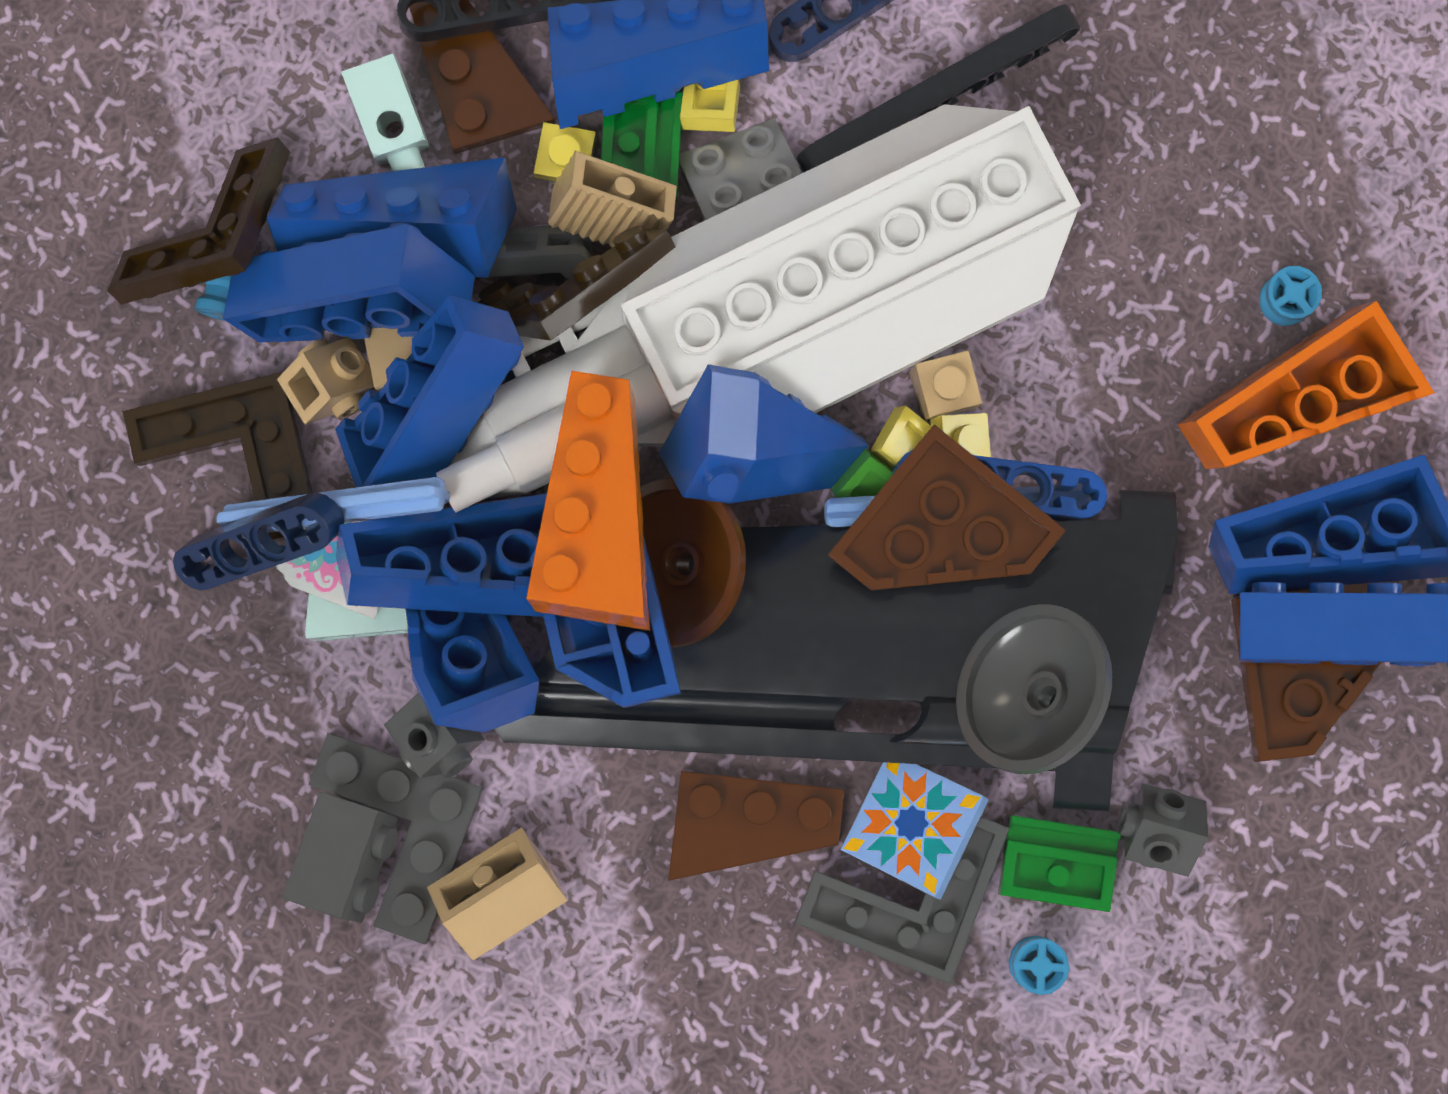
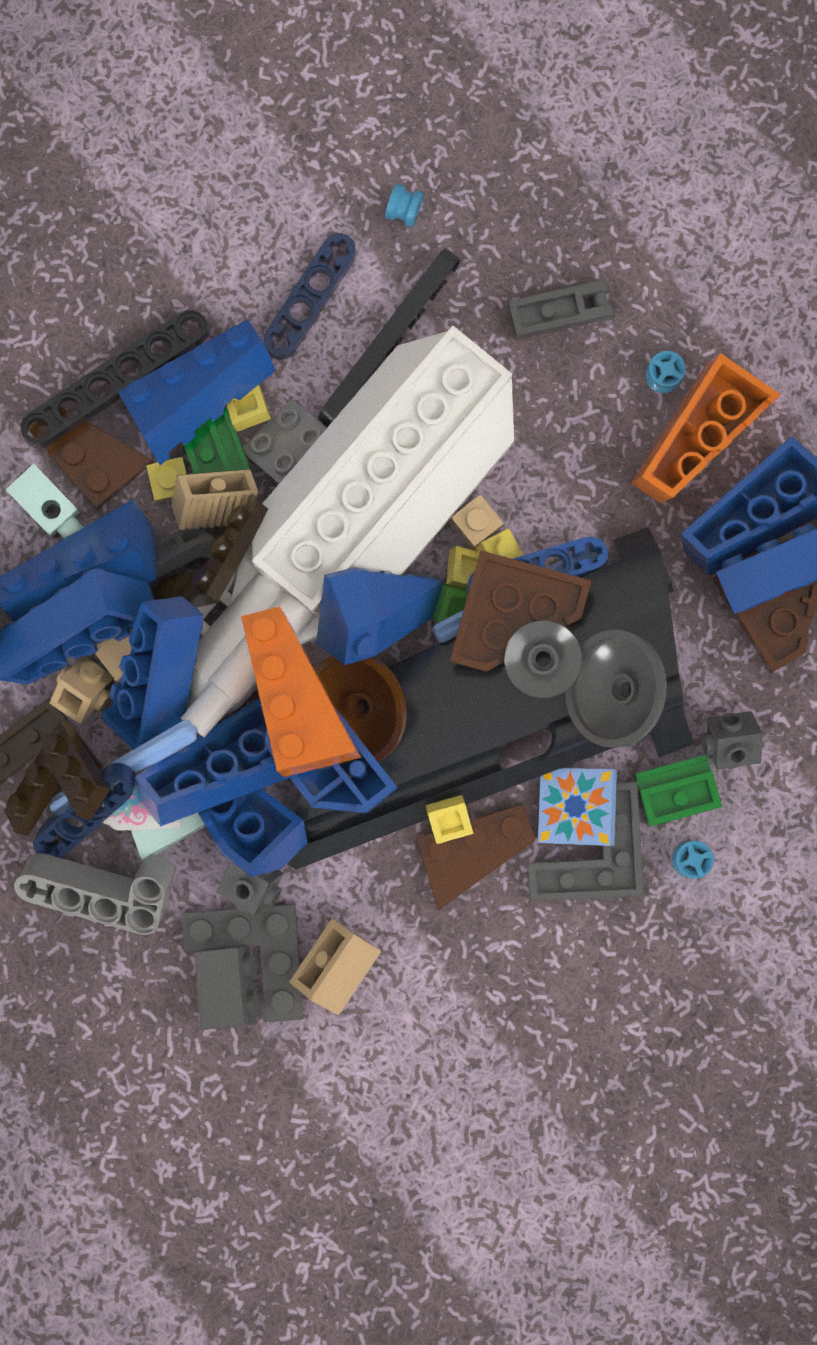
camera: 30 degrees left, 0 degrees up
(230, 660) = (99, 894): none -> light grey beam
(255, 466) = (62, 763): none -> dark brown plate
(735, 765) = (449, 819): none -> light yellow plate
(948, 637) = (548, 679): none -> dark grey dish
(1184, 152) = (560, 309): none -> dark grey plate

